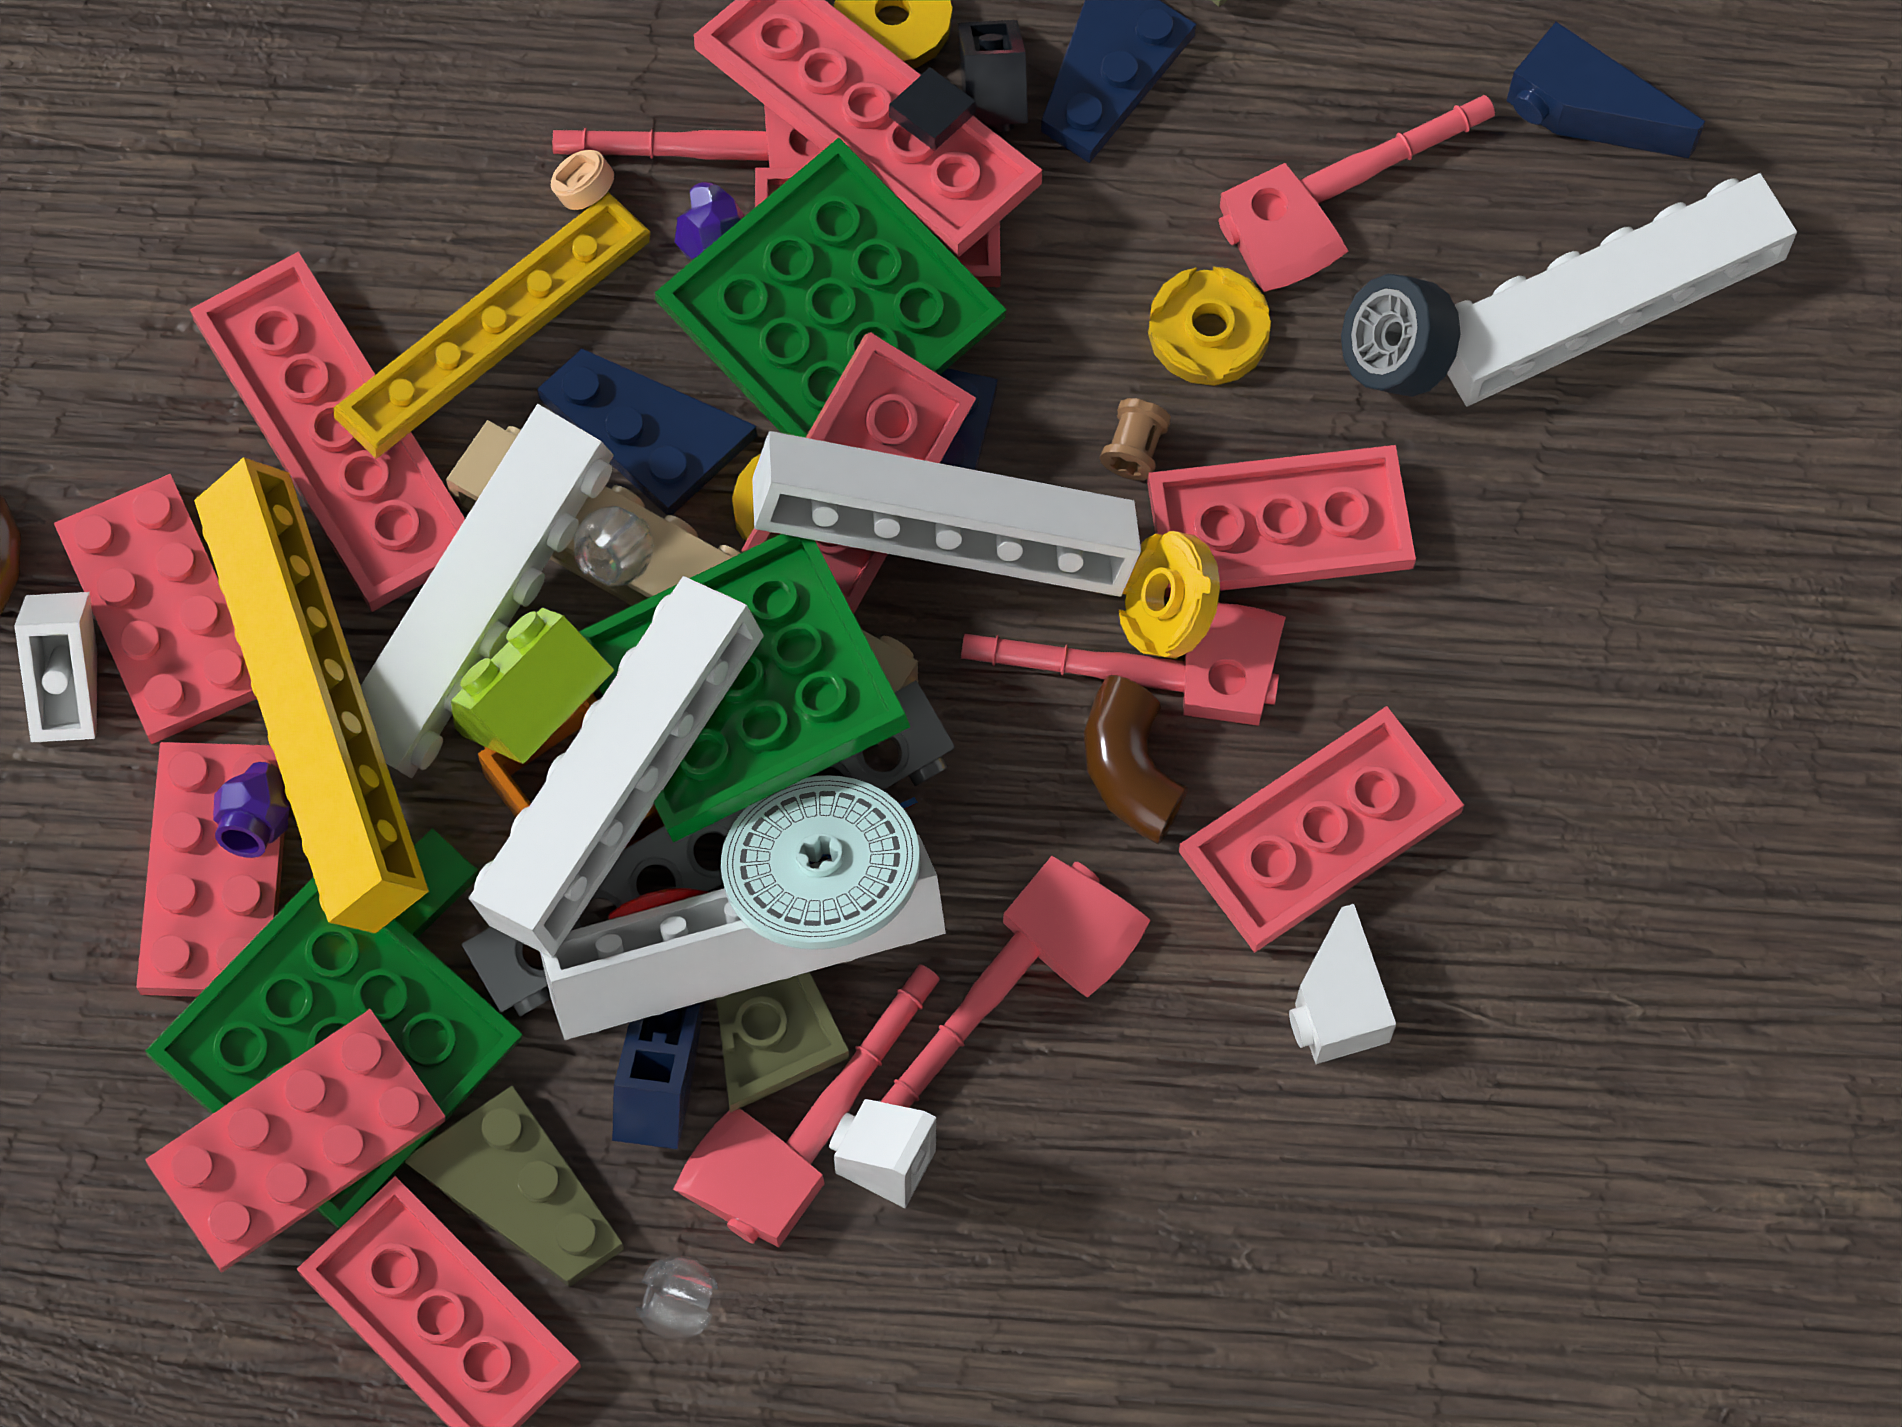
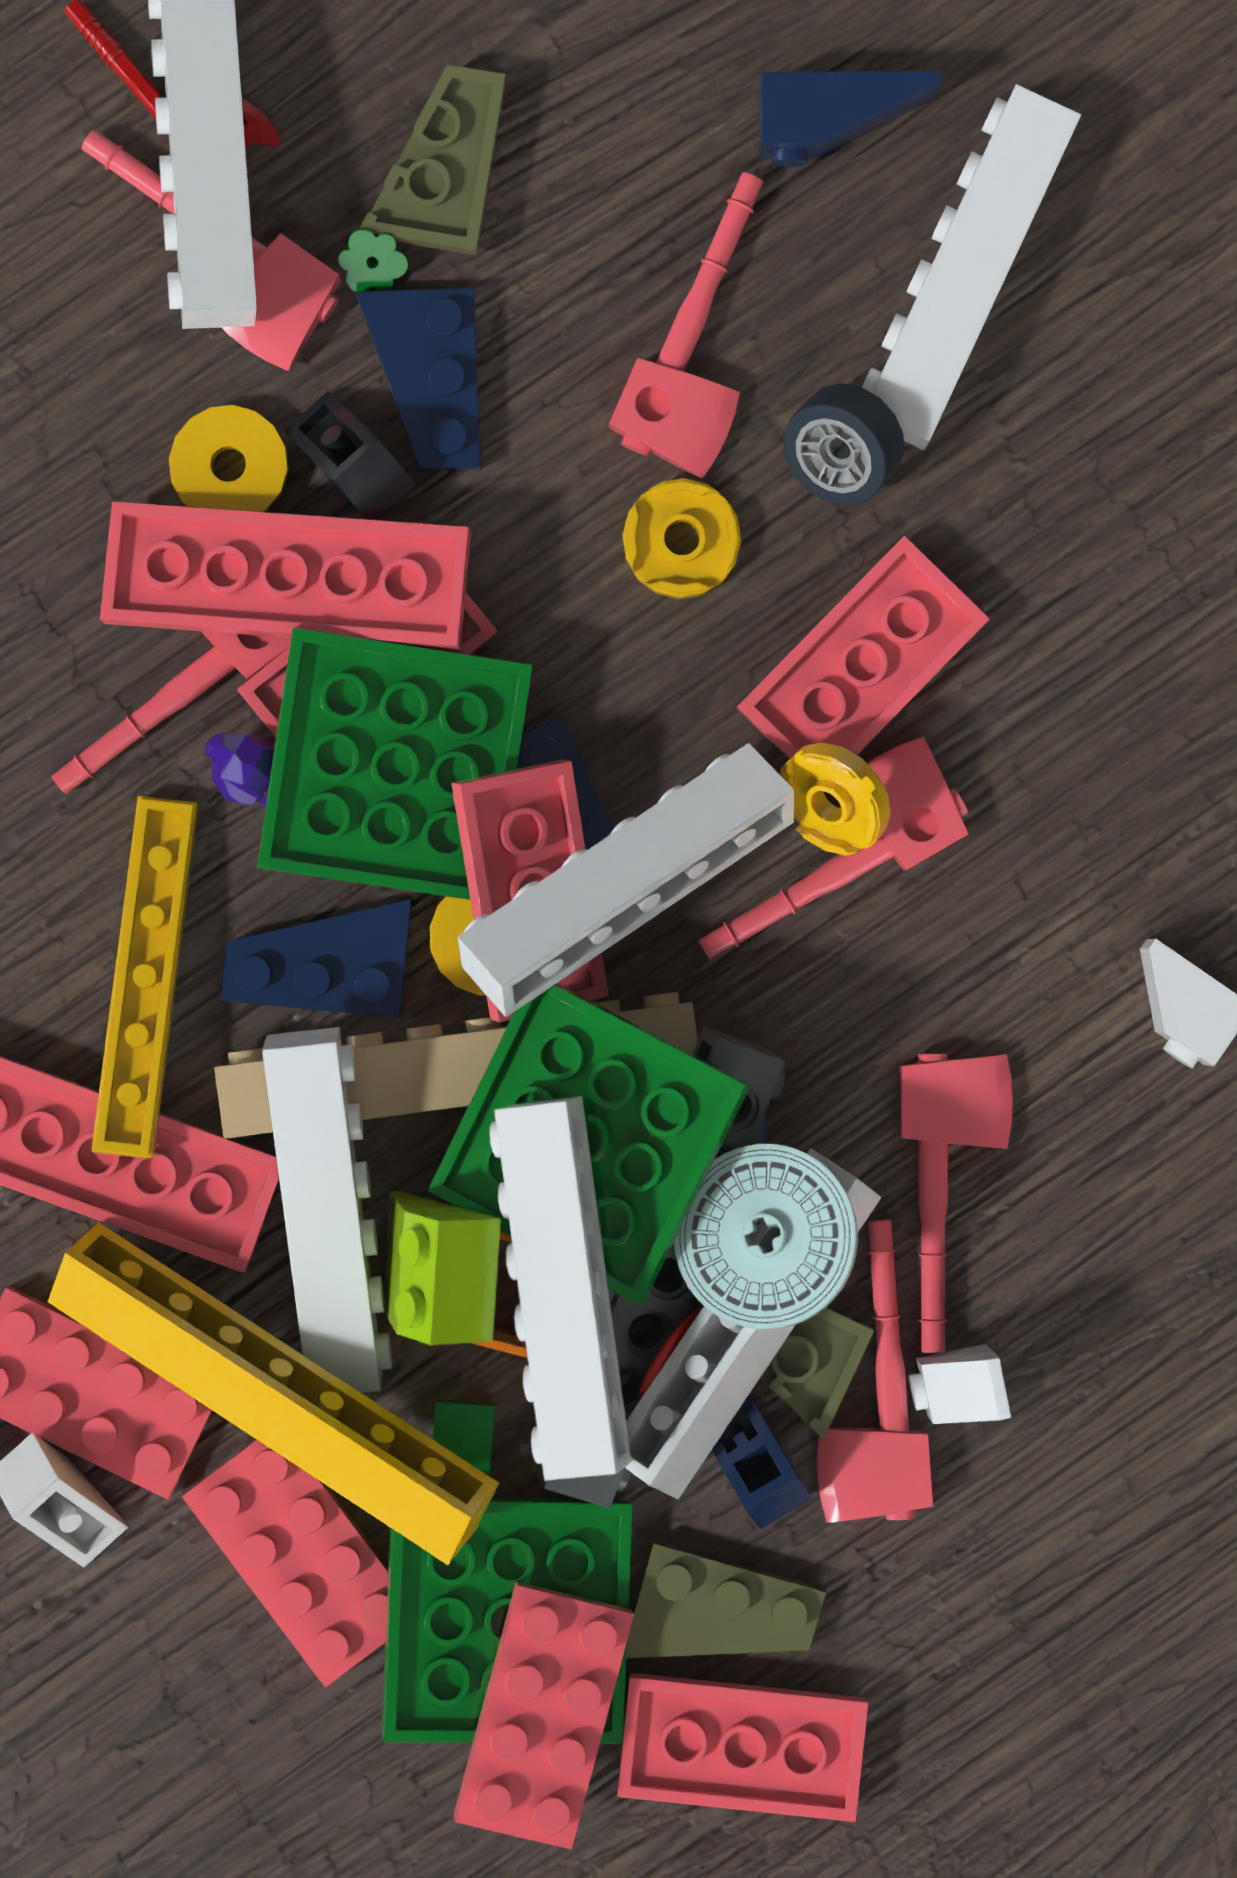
camera: 40 degrees left, 20 degrees up
(251, 810) = (304, 1509): dark purple rock -> none
(582, 179) = (110, 802): light nougat tile -> none
(613, 546) = (402, 1103): clear piece -> none
(677, 1298) = (898, 1603): clear piece -> none
(932, 108) = (343, 543): black tile -> none
(1121, 760) = (895, 953): reddish brown cylinder -> none
(1135, 439) = (703, 683): medium nougat bush -> none
(1320, 828) = (1078, 887): coral plate -> none

